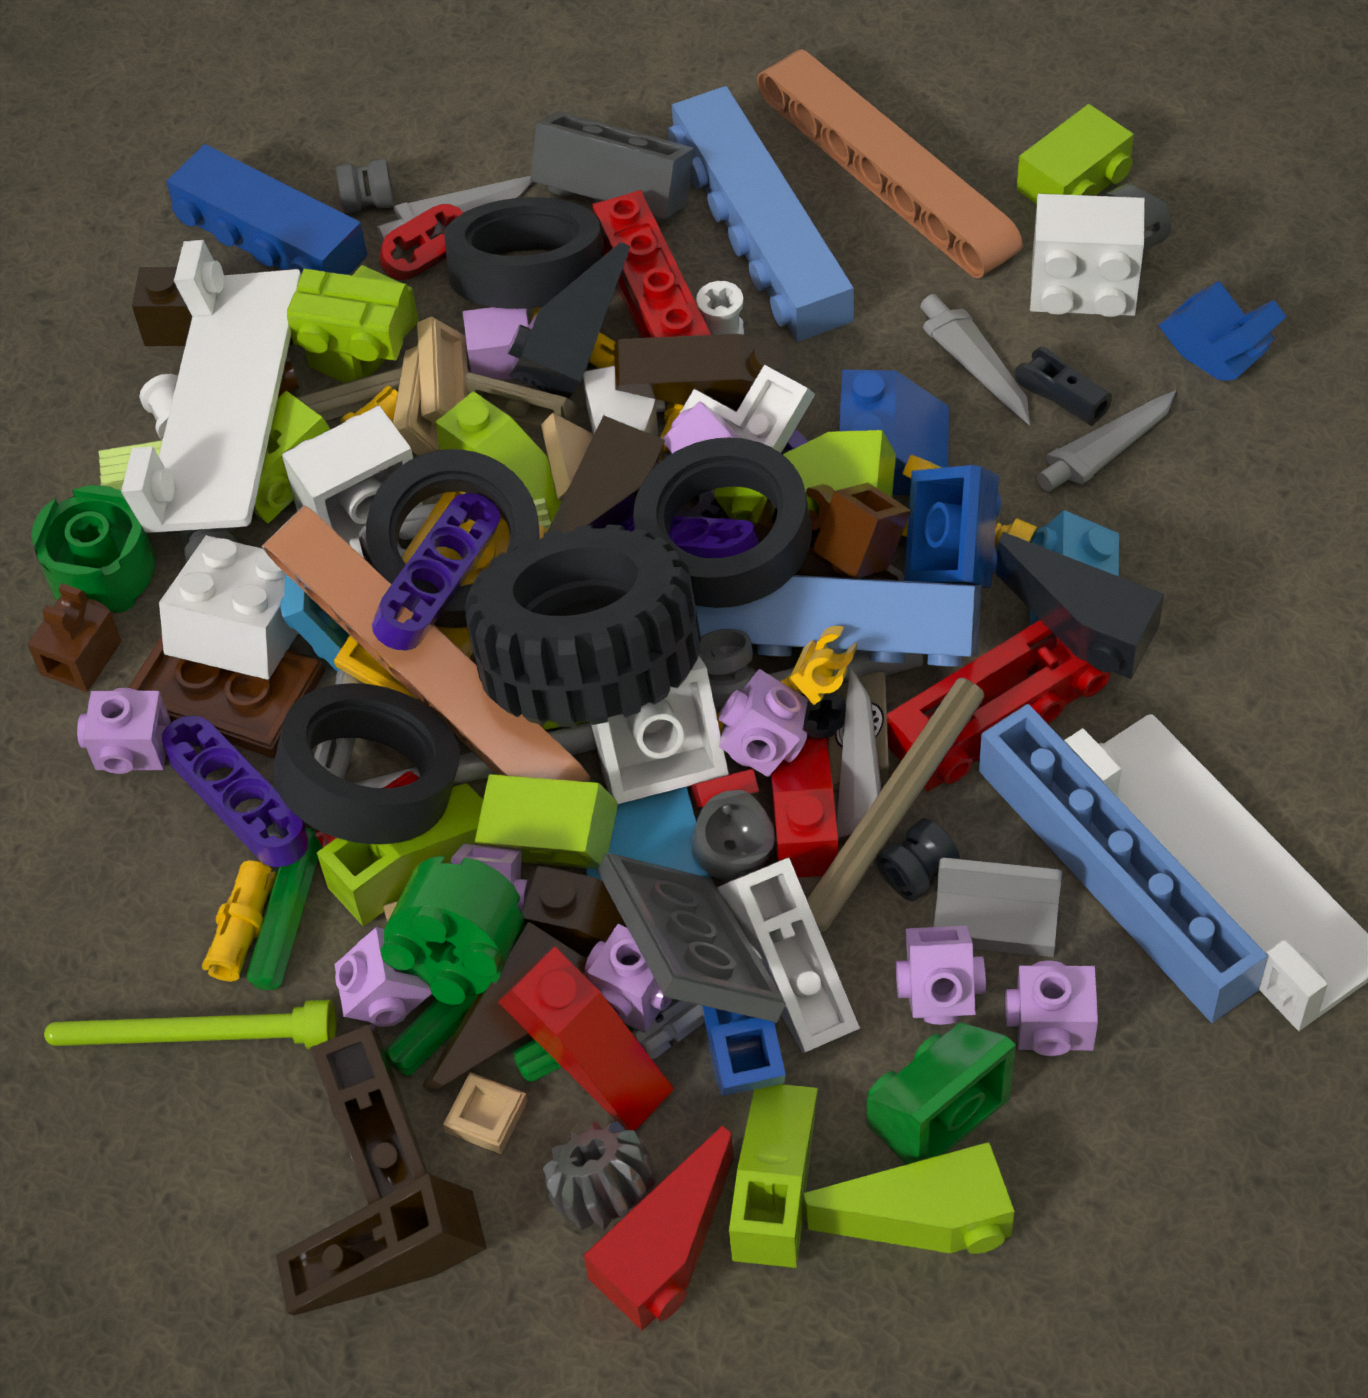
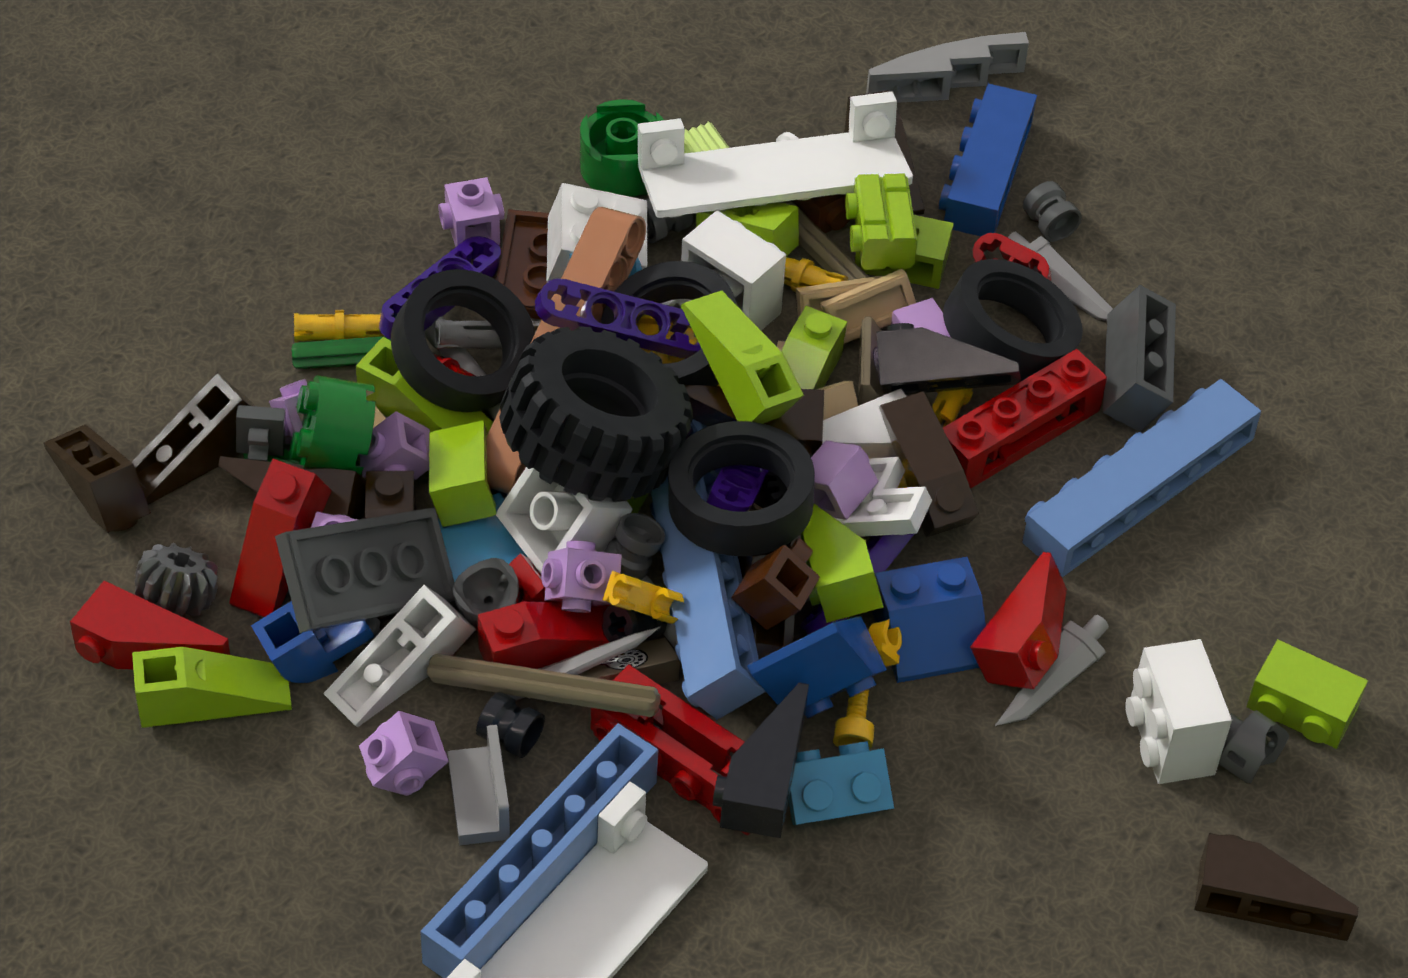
camera: 65 degrees right, 5 degrees down
(74, 639) = (544, 163): reddish brown brick -> none
(109, 221) = (956, 64): none -> light grey slope
(306, 1025) = (263, 385): lime piece -> none
(410, 1027) = (260, 431): none -> dark grey tile
(485, 1113) = (223, 512): tan tile -> none
(572, 458) = (742, 359): none -> lime slope
(720, 307) = (1015, 468): white bush -> none
(890, 163) = (1248, 546): nougat beam -> none
(928, 1204) = (207, 798): lime slope -> none
(939, 353) = (1026, 629): none -> red slope
(942, 1092) = (293, 777): green slope -> none
(1053, 1008) = (393, 838): lavender brick -> none
(1066, 388) = (1042, 741): black bar -> none
(1090, 453) = (983, 776): light grey bar -> none
(1218, 335) = (1144, 840): blue brick -> none
(1293, 258) = (1261, 887): none -> dark brown slope

